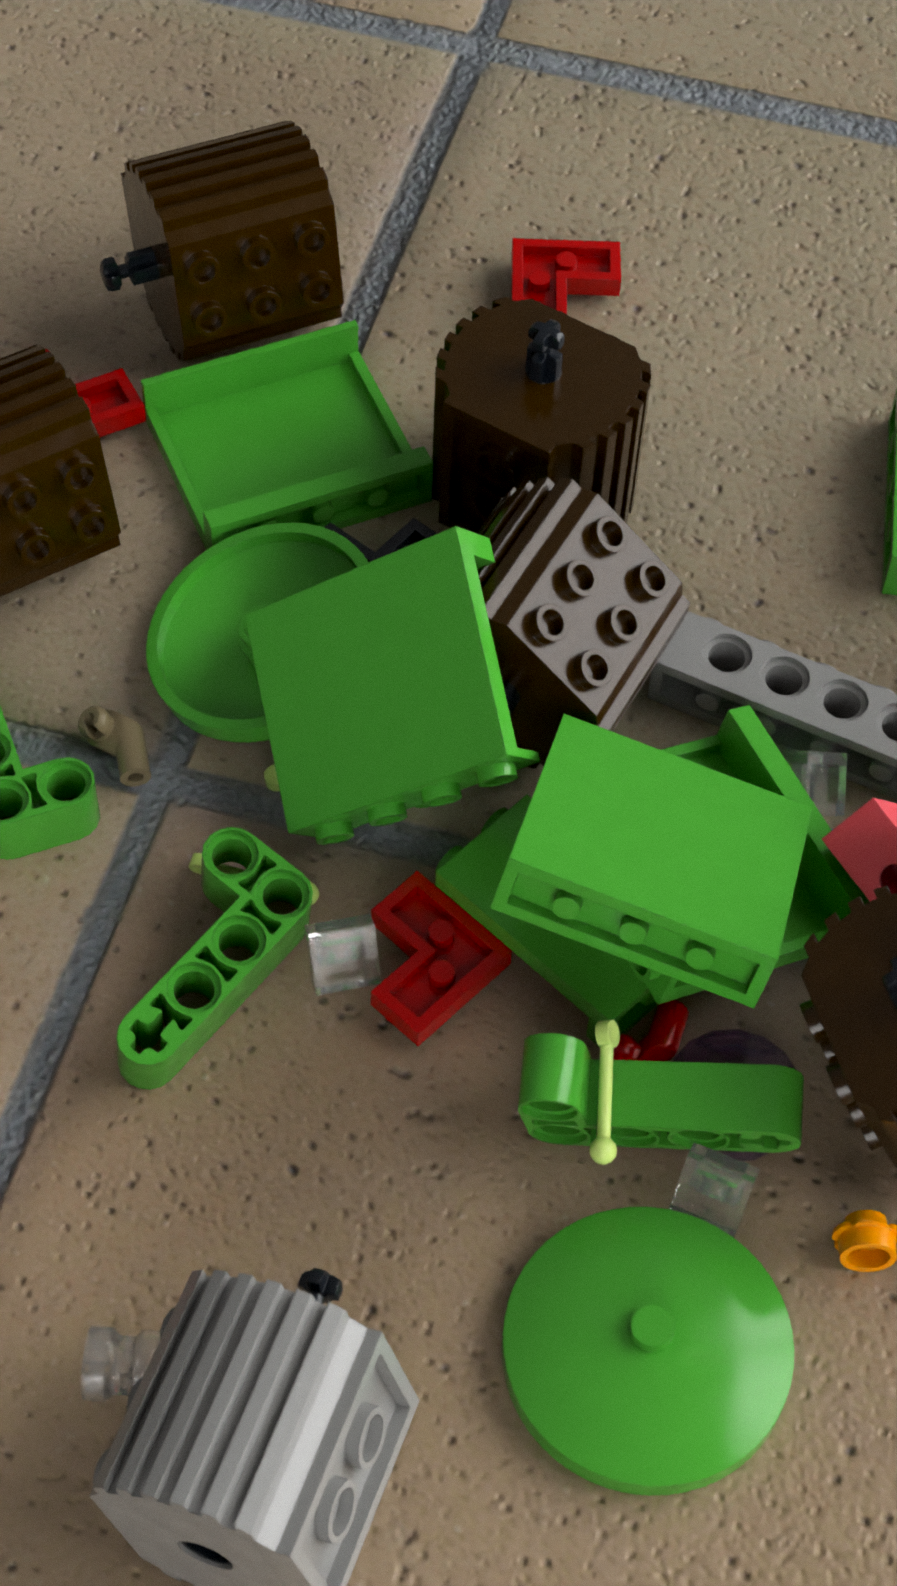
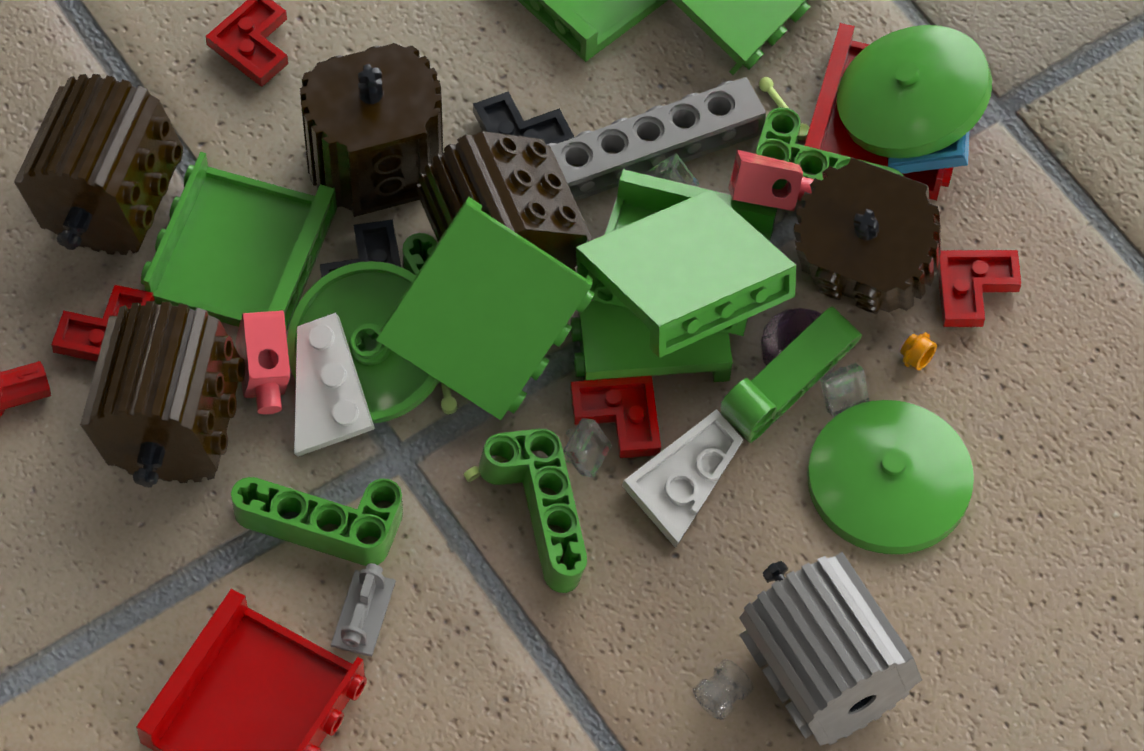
camera: 50 degrees left, 5 degrees up
(120, 738) = (362, 457): dark tan arm -> none
(144, 547) = (264, 348): none -> coral torso
(170, 635) = (328, 389): none -> white wing
(407, 1092) = (683, 475): none -> white wing
(603, 1148) = (795, 414): yellowish green hinge -> none
(662, 1038) = (752, 357): red arm -> none
(704, 565) = (502, 116): none -> black plate

